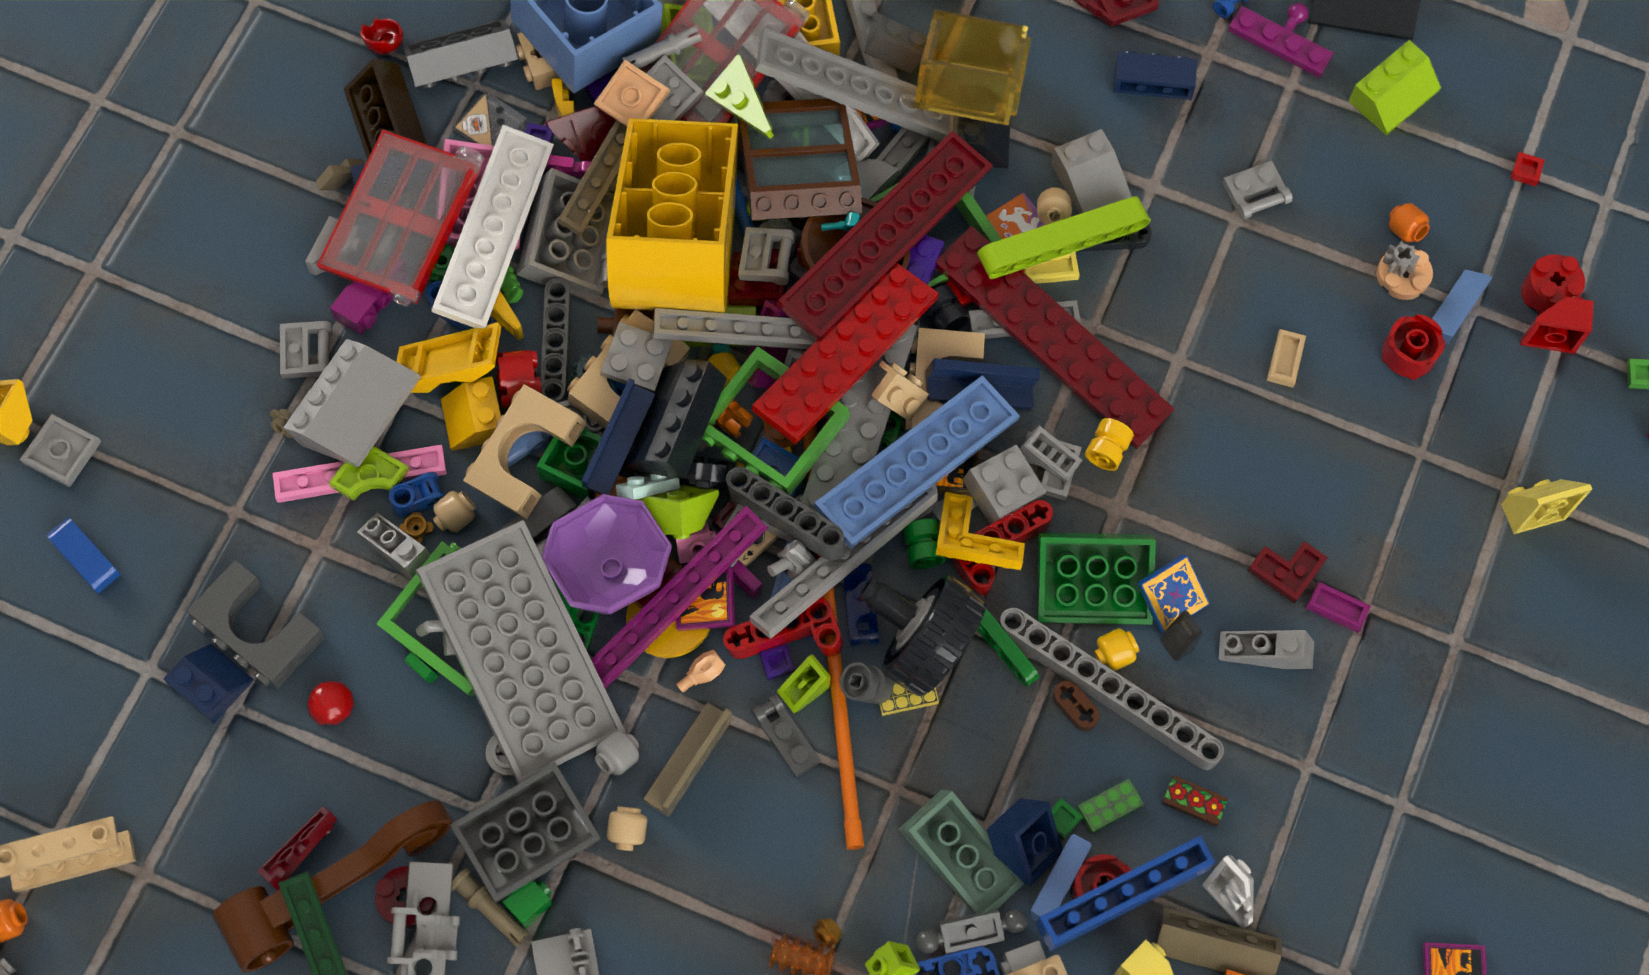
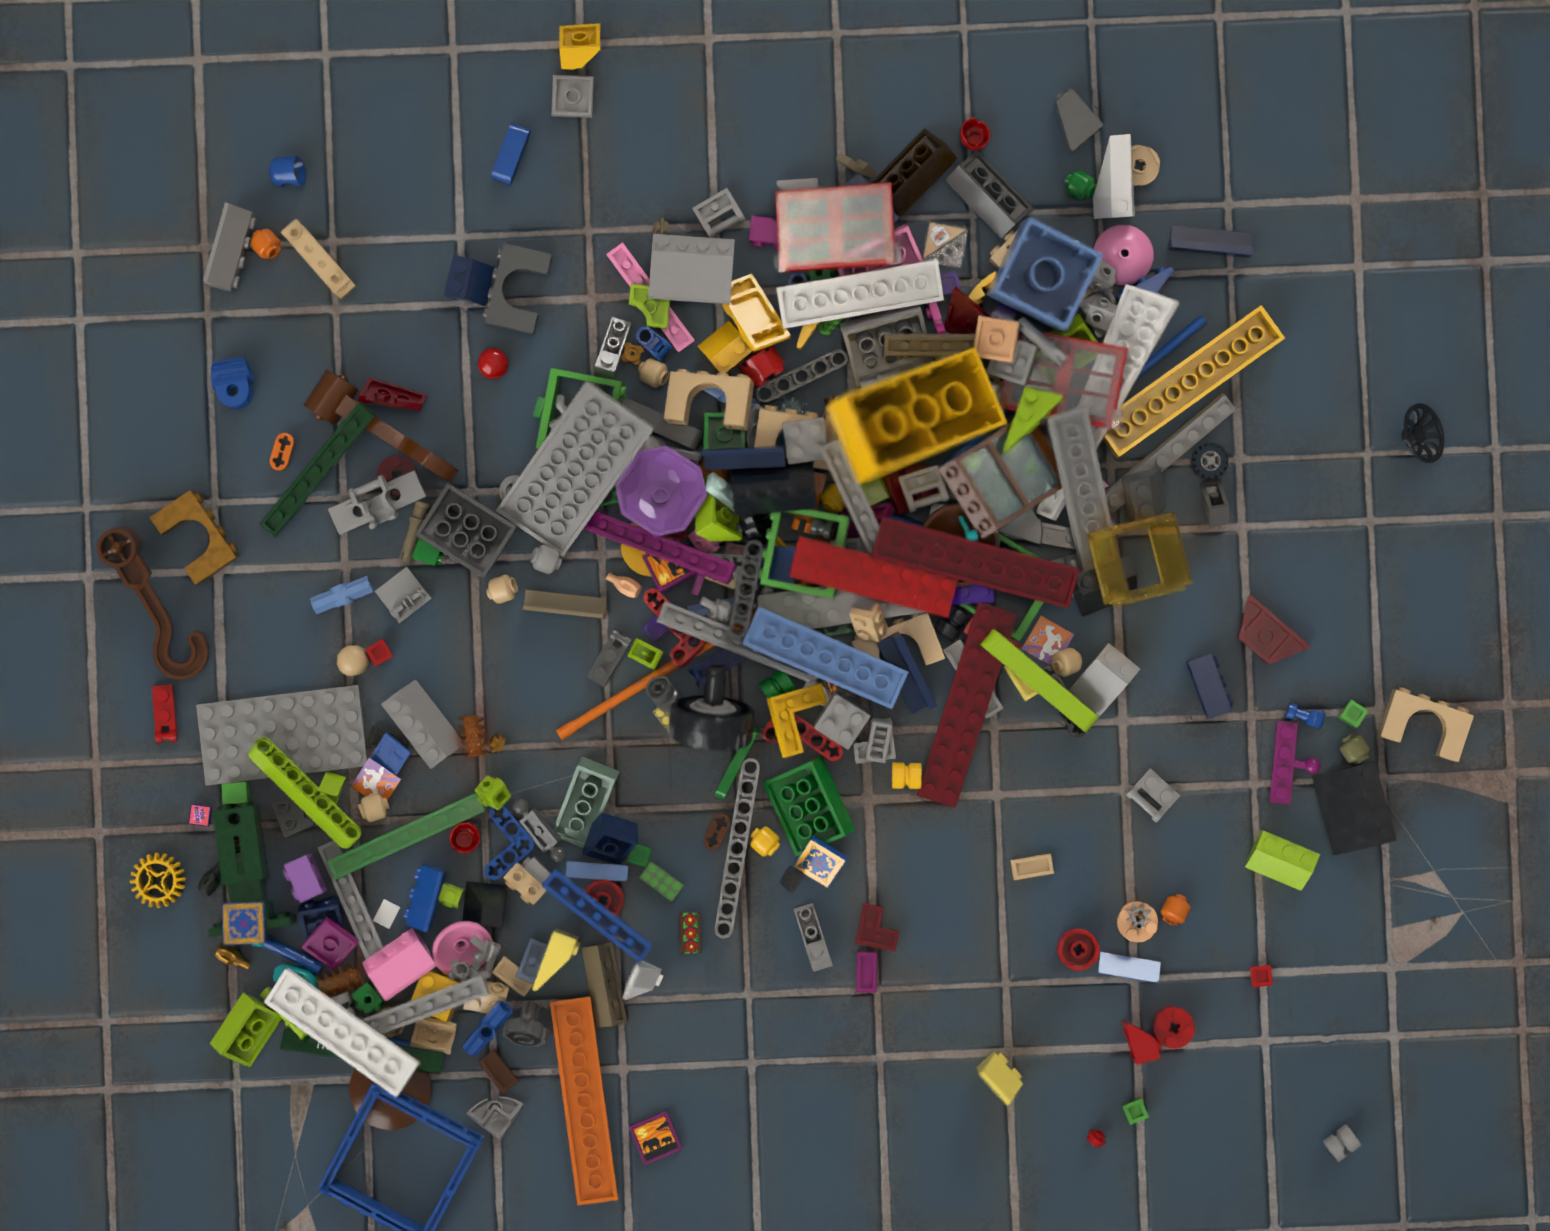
camera: 70 degrees right, 20 degrees up
(749, 397) = (823, 527): none -> dark grey wheel

